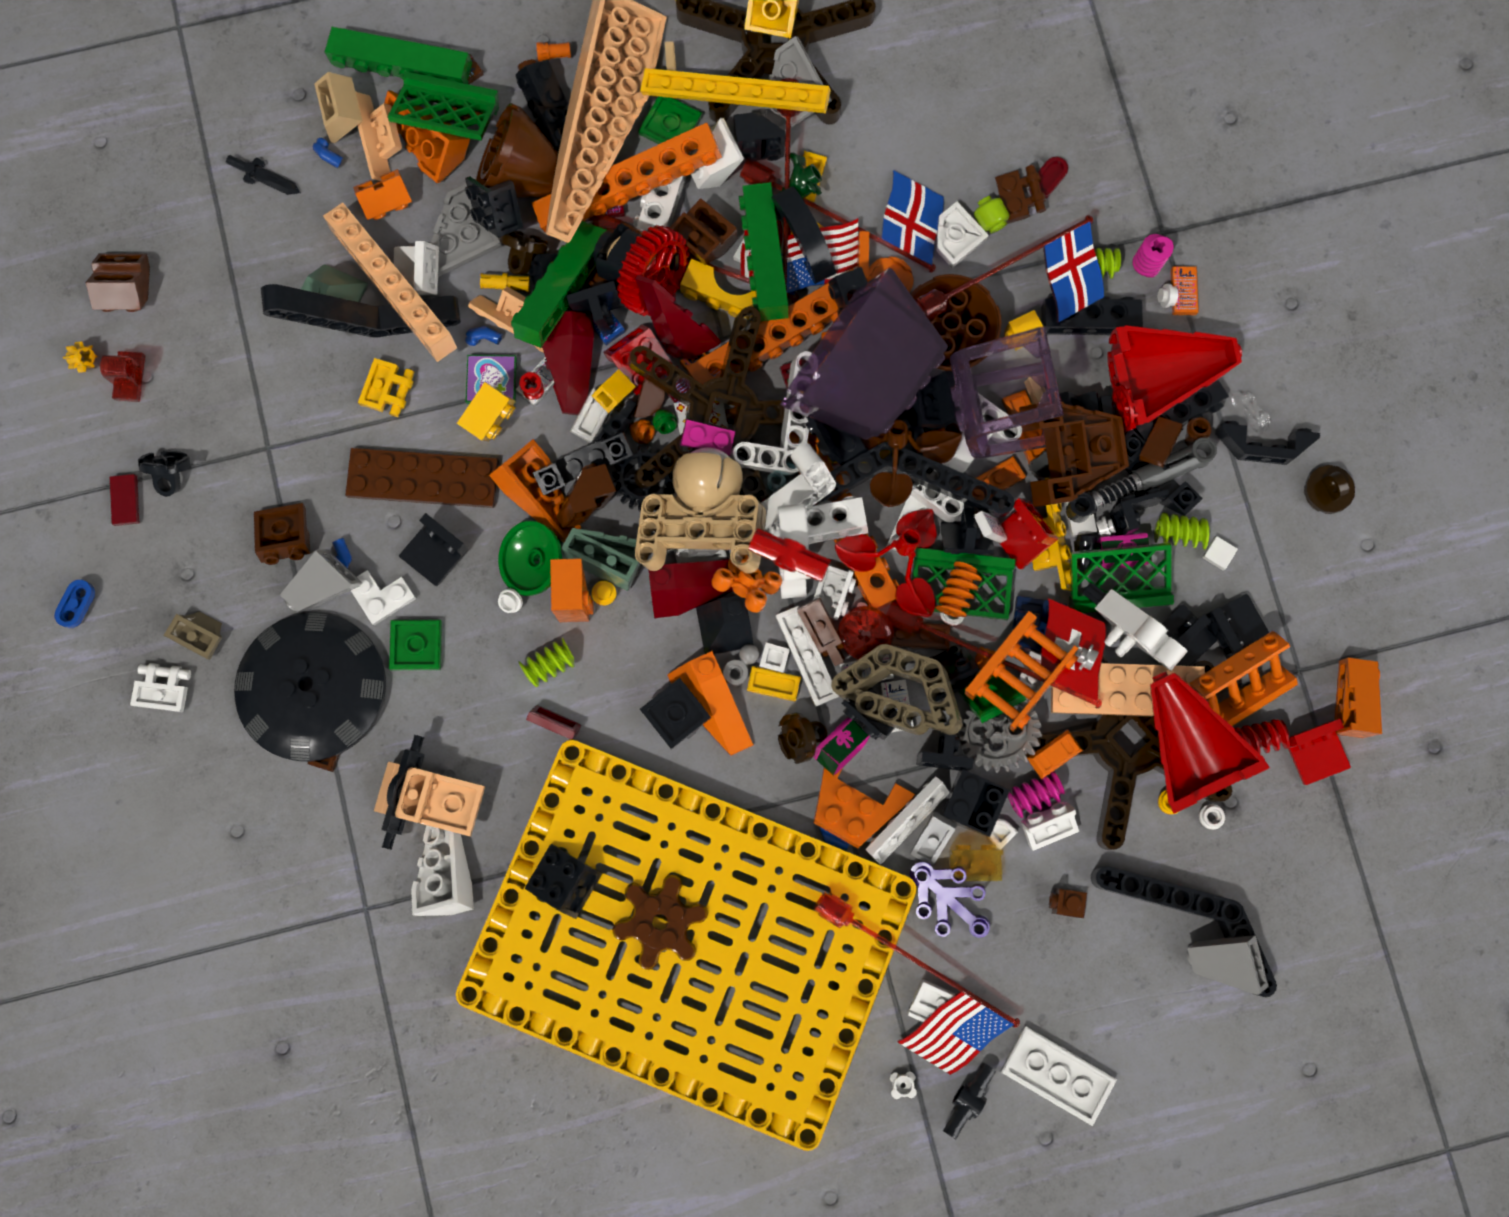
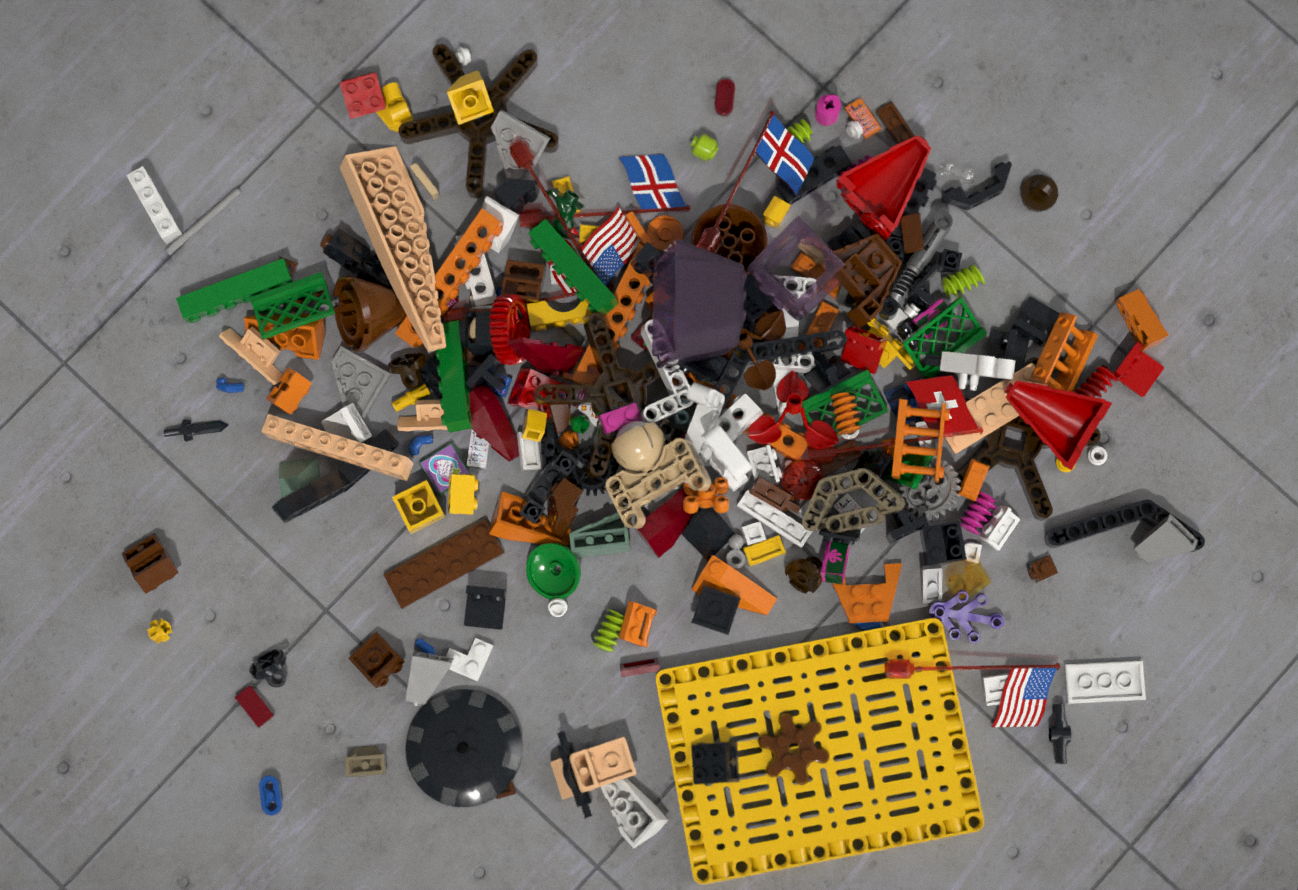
camera: 30 degrees left, 0 degrees up
(125, 374) = (198, 623): clear red tile -> none
(160, 696) = (369, 818): white plate -> none
(338, 105) = (219, 350): tan slope -> none
(379, 385) = (373, 520): yellow plate -> none
(415, 645) = (514, 676): green tile -> none
(434, 399) = (418, 507): none -> yellow brick
(494, 207) = (378, 355): black bracket -> none
(532, 379) = (473, 452): red bush -> none
(551, 51) = (332, 221): orange pin -> none
(569, 591) = (597, 575): orange wedge -> none
(577, 669) = (633, 622): none -> orange plate
(603, 593) = (615, 562): yellow plate -> none
(668, 119) = (447, 218): green tile -> none
(736, 90) = (483, 173): yellow plate -> none
(789, 555) = (731, 462): red piece -> none
(806, 232) = (592, 239): black slope -> none
(908, 820) = (907, 585): white plate -> none
(908, 1090) = (1018, 752): white plate -> none
(958, 234) = (690, 174): white plate -> none
(990, 527) = (839, 359): white tile -> none
(1012, 193) = (710, 125): reddish brown plate -> none
(1087, 657) = (955, 405): light grey plate -> none
(1197, 429) = (930, 209): reddish brown cone -> none
(1216, 312) = (894, 123): none -> reddish brown tile
(1220, 553) = (995, 281): white tile -> none

